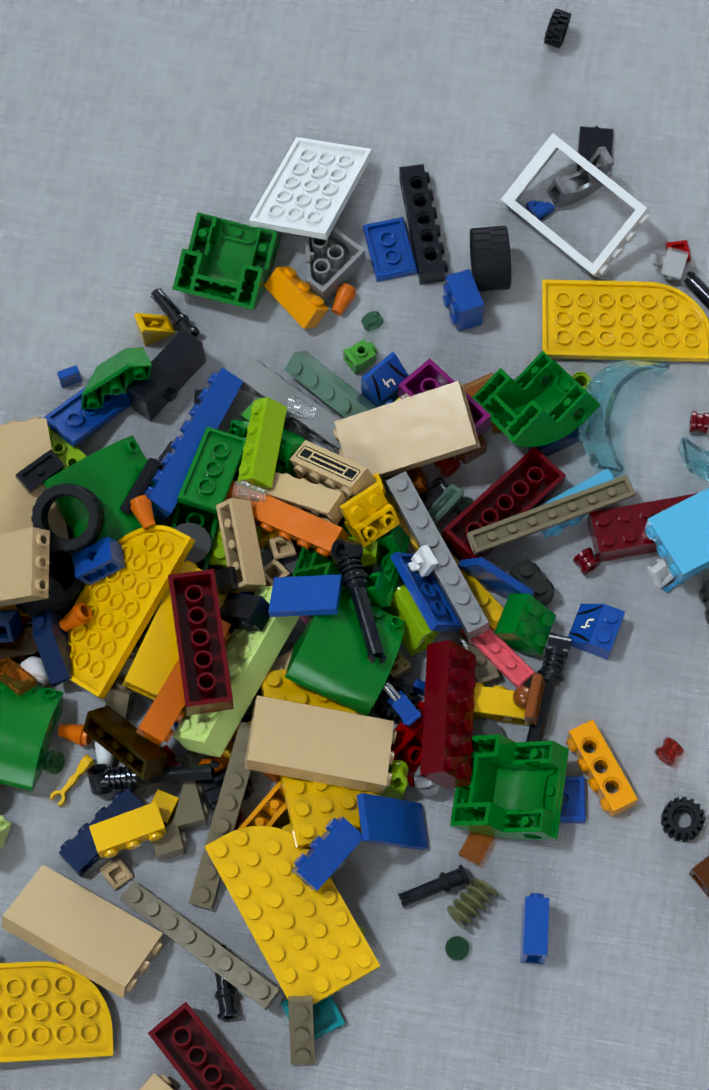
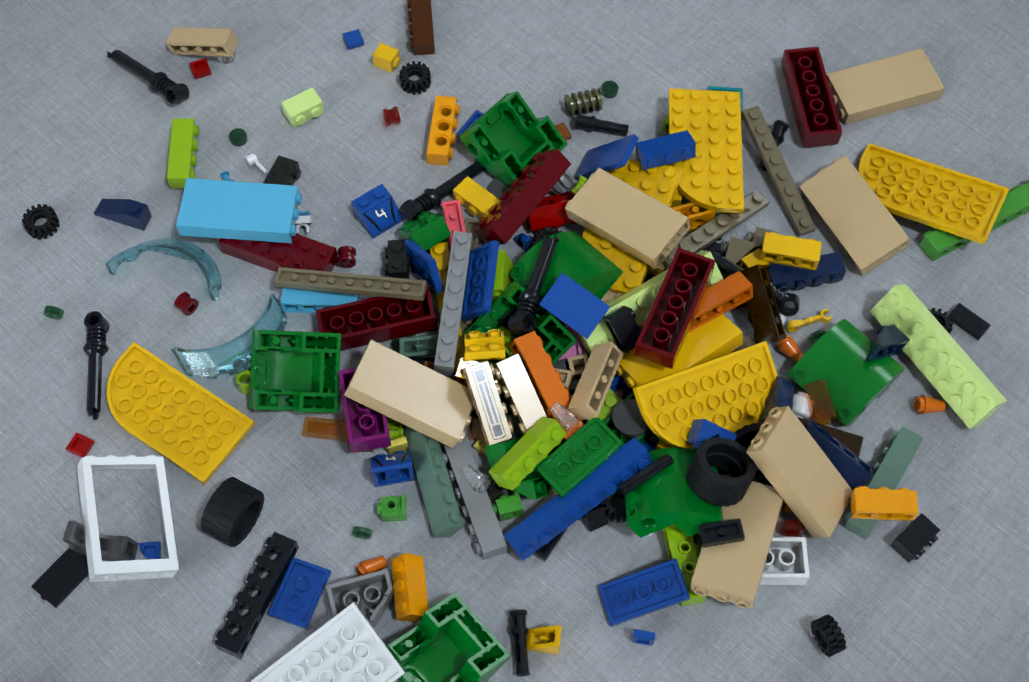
camera: 150 degrees left, 5 degrees down
(77, 616) = (749, 412): orange cone -> none
(115, 375) = (605, 595): green brick -> none
(142, 509) = (657, 445): orange cone -> none
(168, 374) = (562, 579): black brick -> none
(226, 580) = (624, 359): black tile -> none
(301, 1030) = (740, 86): dark tan plate -> none
(402, 705) = (550, 216): blue piece -> none
(423, 561) = (469, 294): white tile -> none
(463, 300) = (279, 496): blue brick -> none
(530, 698) = (459, 180): dark orange tile -> none
(534, 929) = (556, 63): blue brick -> none
(672, 262) = (95, 431): light grey brick -> none

